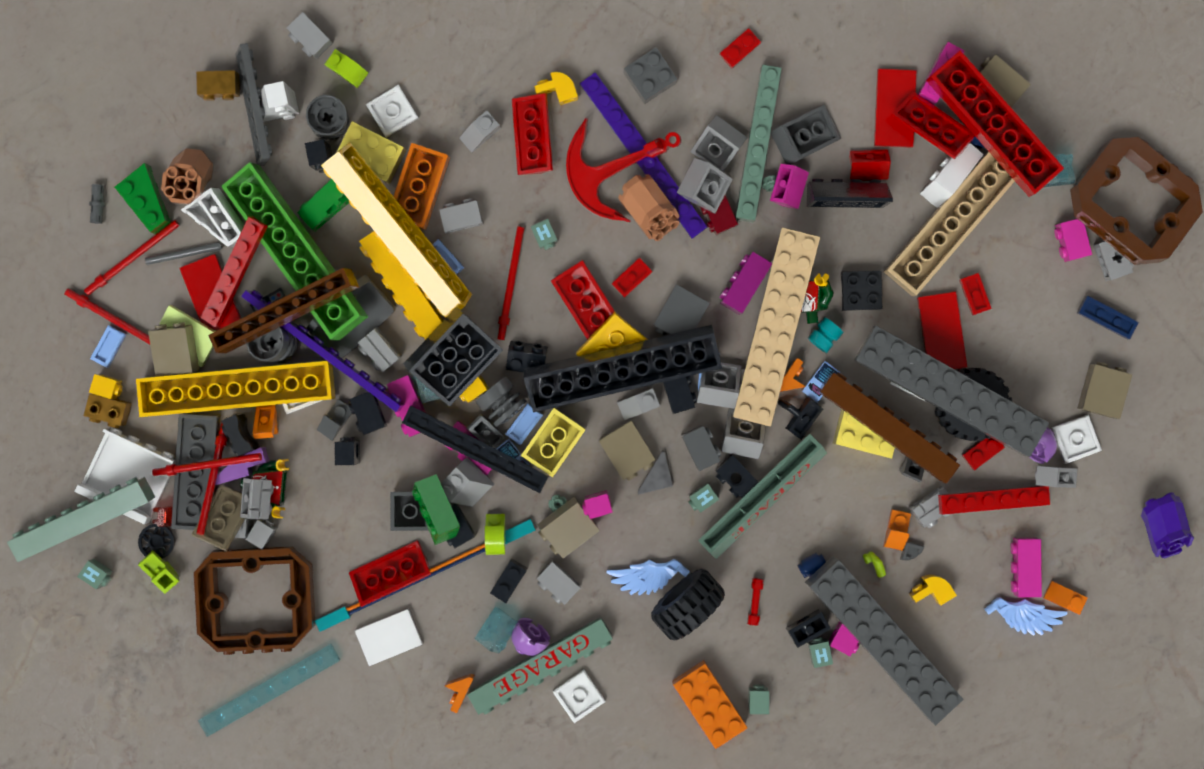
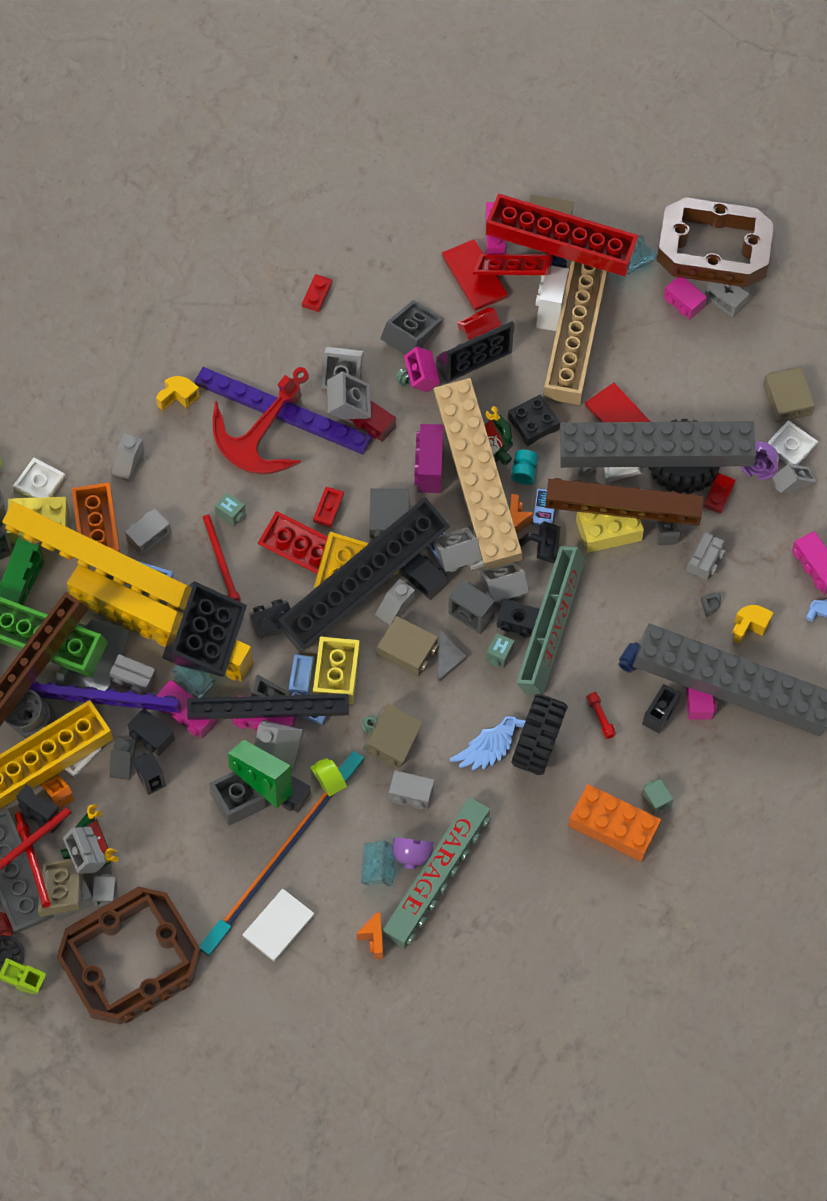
camera: 30 degrees left, 25 degrees down
(241, 470) = (53, 842): medium lavender slope -> none
(269, 690) = (187, 1037): clear light blue tile -> none
(390, 573) = (247, 864): red slope -> none
(501, 401) = (272, 660): dark grey wheel -> none
(508, 580) = (364, 811): black brick -> none
(532, 134) = (175, 438): red slope -> none
(579, 696) = (490, 884): white tile -> none
(597, 504) = (408, 693): dark pink brick -> none
(649, 207) = (310, 441): nougat brick -> none
(650, 75) = (252, 345): dark grey brick -> none
(758, 143) = (375, 352): sand green brick -> none
(820, 652) = (685, 726): sand green brick -> none
(876, 561) = (685, 625): lime arm -> none
(897, 530) = (688, 592): orange slope -> none
(975, 294) = (631, 376): red plate -> none
(994, 500) = (753, 521): red plate -> none
(1107, 317) = (753, 340): dark blue plate -> none

